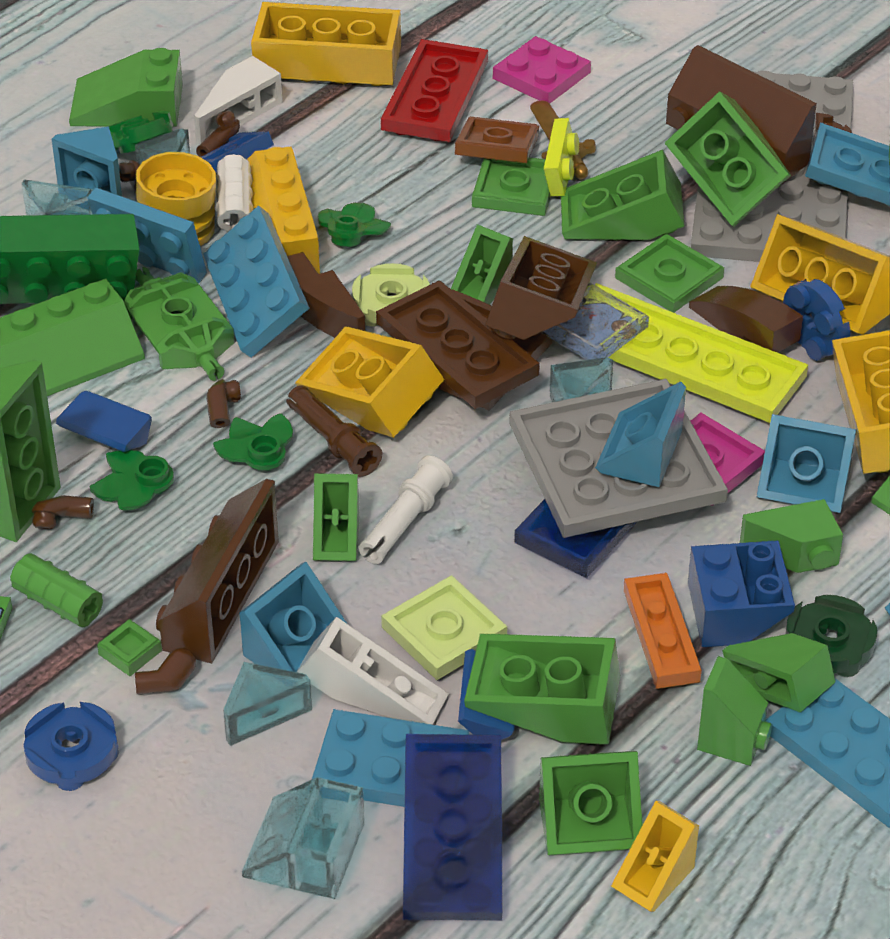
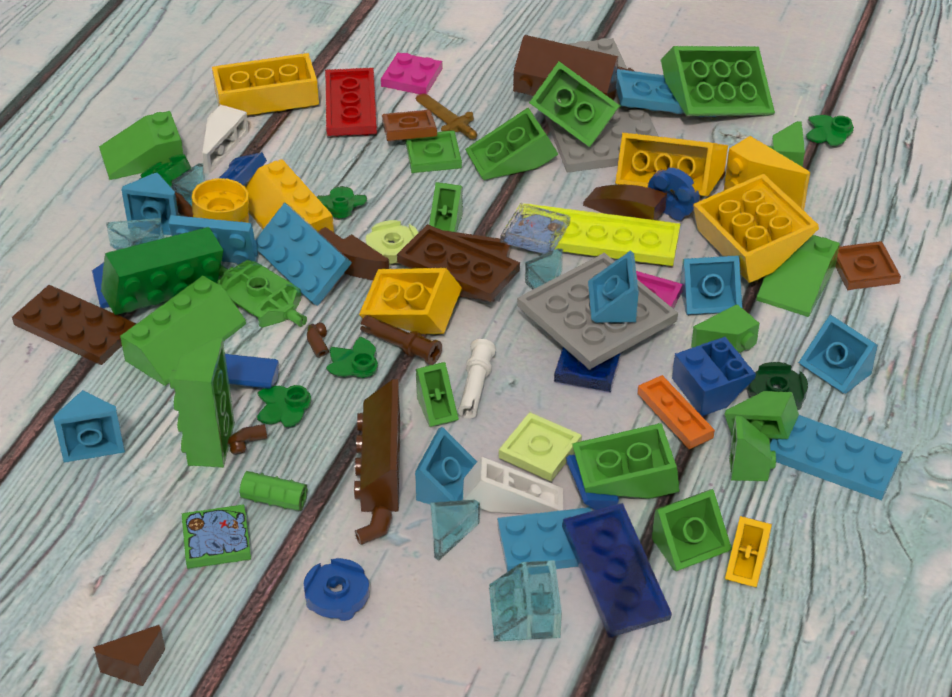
camera: 20 degrees left, 0 degrees up
(129, 647) = (340, 515): bright green tile -> none
(227, 128) = (225, 156): reddish brown arm -> none
(233, 190) = (260, 200): white axle -> none
(539, 290) = (496, 215): reddish brown slope -> none
(559, 157) = (462, 133): neon yellow plate -> none
(669, 273) = (561, 186): bright green tile -> none

